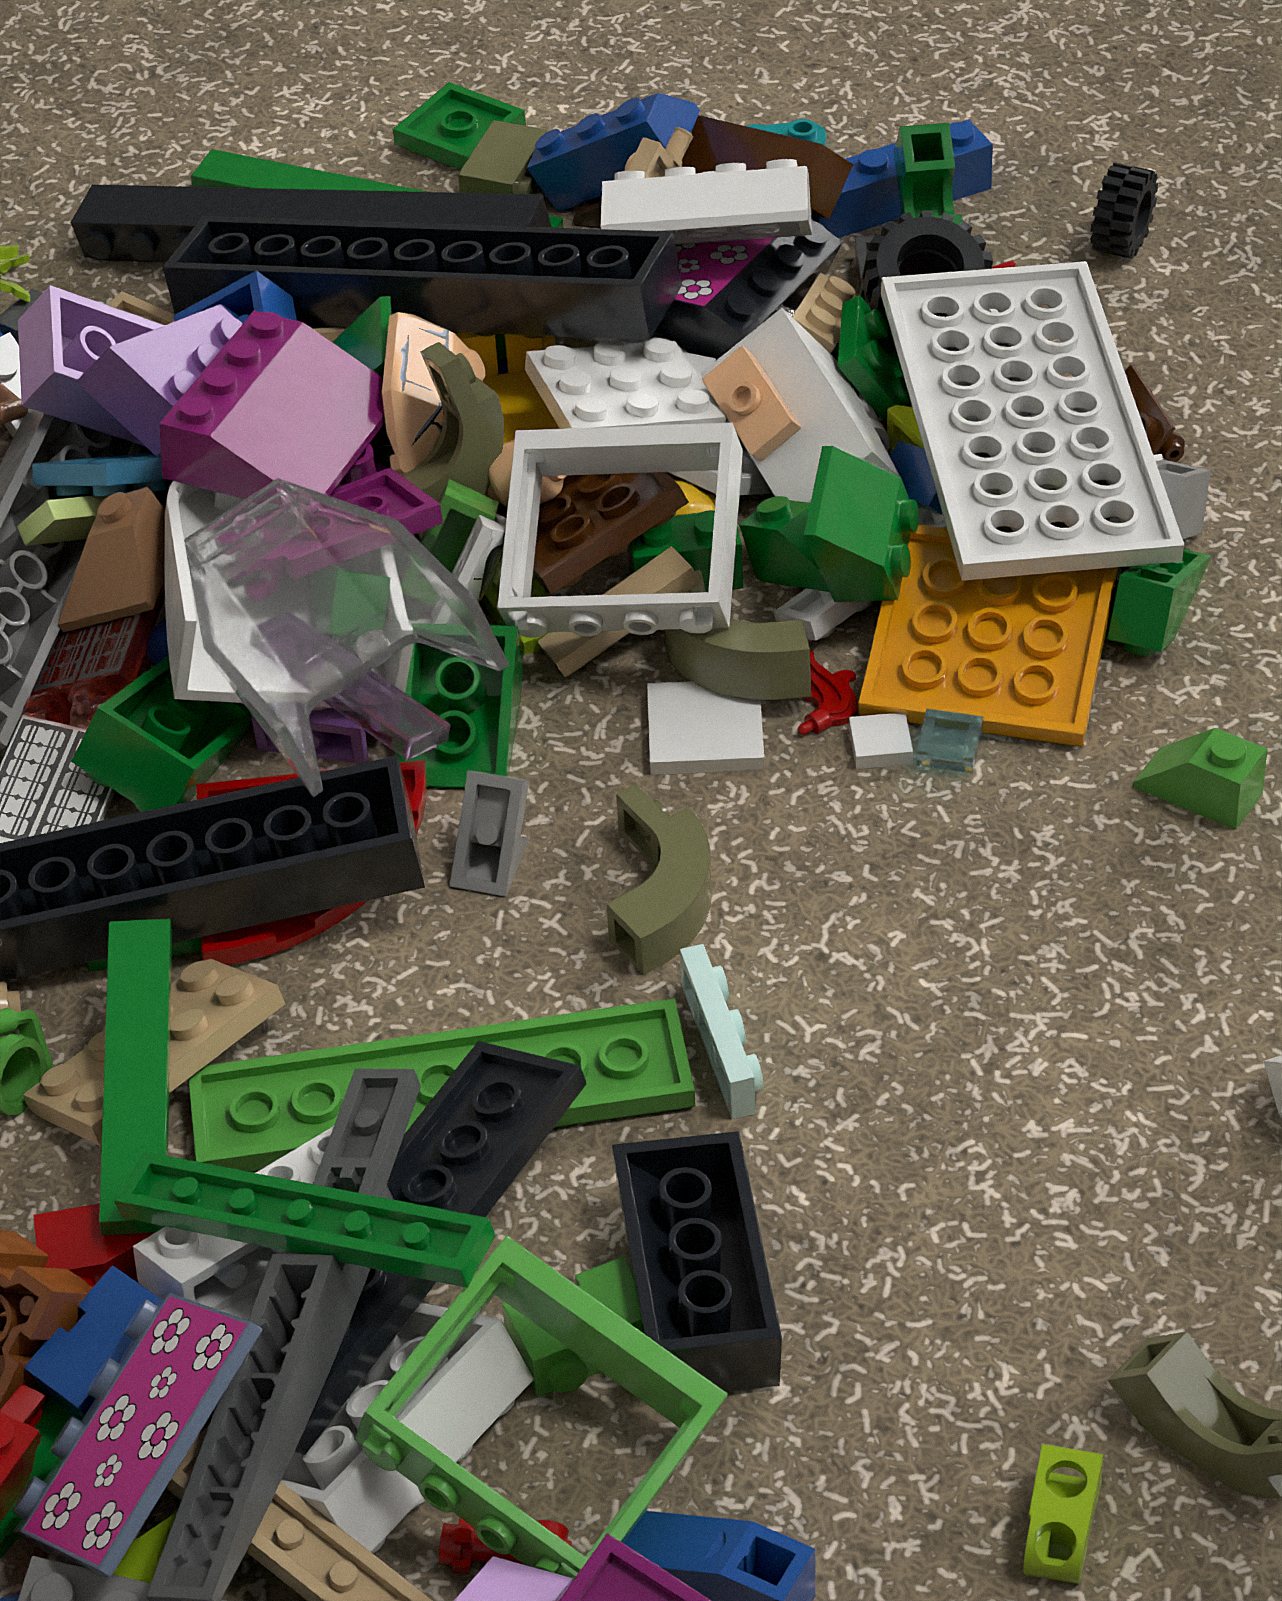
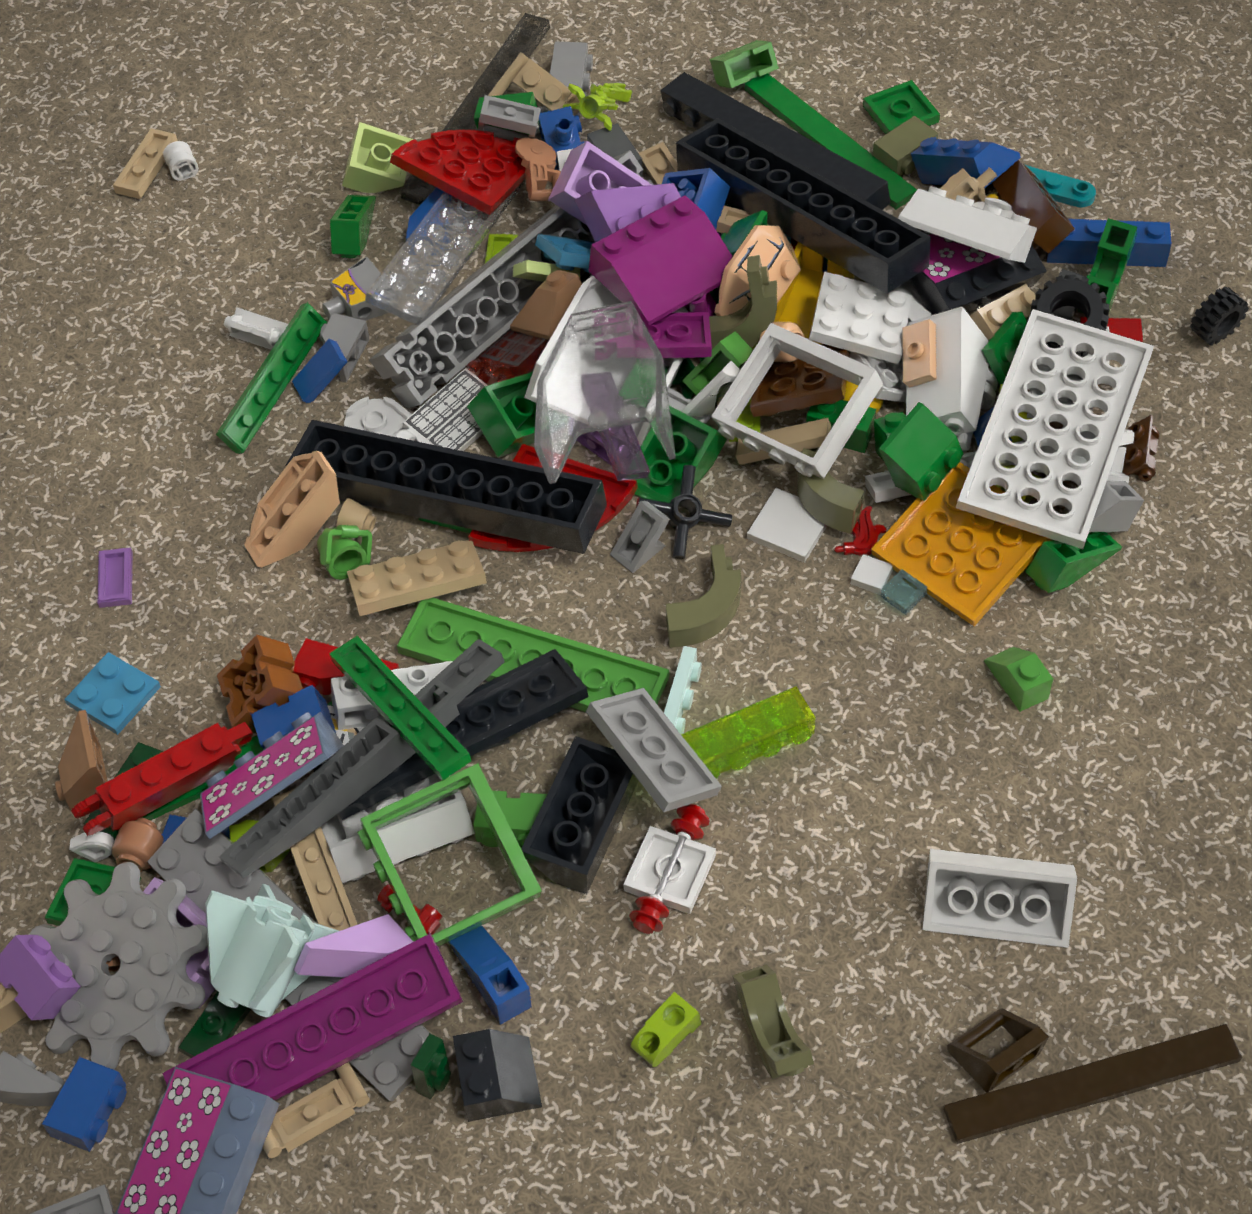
camera: 30 degrees right, 10 degrees up
(135, 1060) = (395, 579): green tile -> none
(176, 145) = (744, 63): none -> bright green brick
(543, 764) = (693, 505): none -> black bar
(755, 1105) = (653, 749): none -> light grey plate
(862, 1040) = (753, 732): none -> clear neon green brick
(888, 1282) = (669, 869): none -> white plate

